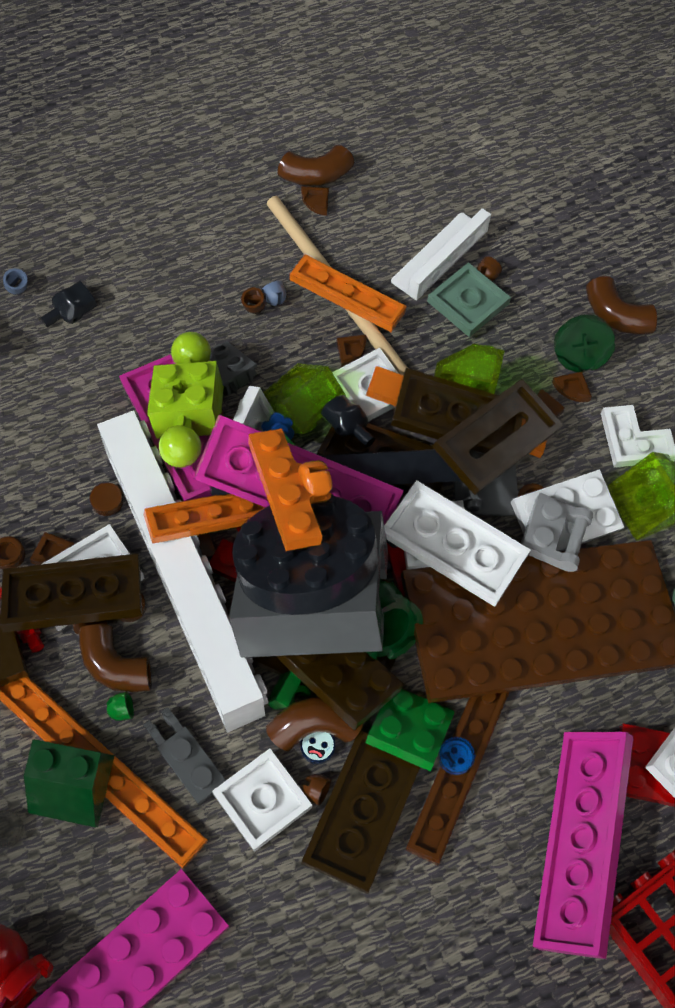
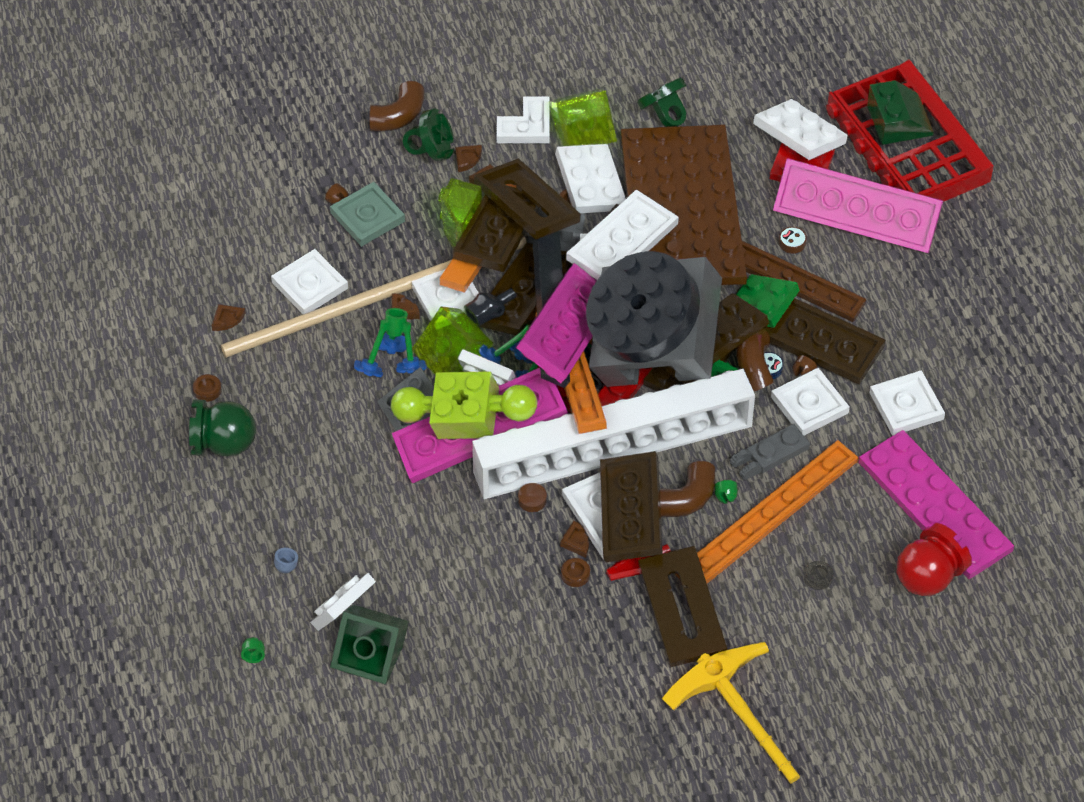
camera: 80 degrees left, 10 degrees down
(66, 782) = (788, 520): dark green slope -> none
(70, 304) = (318, 517): black piece -> none
(161, 197) = (223, 428): none -> dark green tile
(226, 195) = (207, 387): none -> reddish brown tile
(253, 296) = (336, 369): reddish brown hinge -> none
(272, 929) = (907, 402): none -> white plate
(274, 293) = (335, 356): sand blue hinge -> none
(290, 488) = (592, 301): orange plate -> none
(300, 338) = (392, 342): none -> plant
(316, 170) = (198, 309): reddish brown cylinder -> none
(348, 293) = (349, 297): orange tile -> none
(368, 257) = (309, 282): none -> white plate
(441, 253) = (311, 225): white panel -> none
(456, 755) = (788, 271): clear blue tile -> none
(522, 761) = (792, 240): none -> tile
(546, 527) = (612, 185): light grey plate -> none

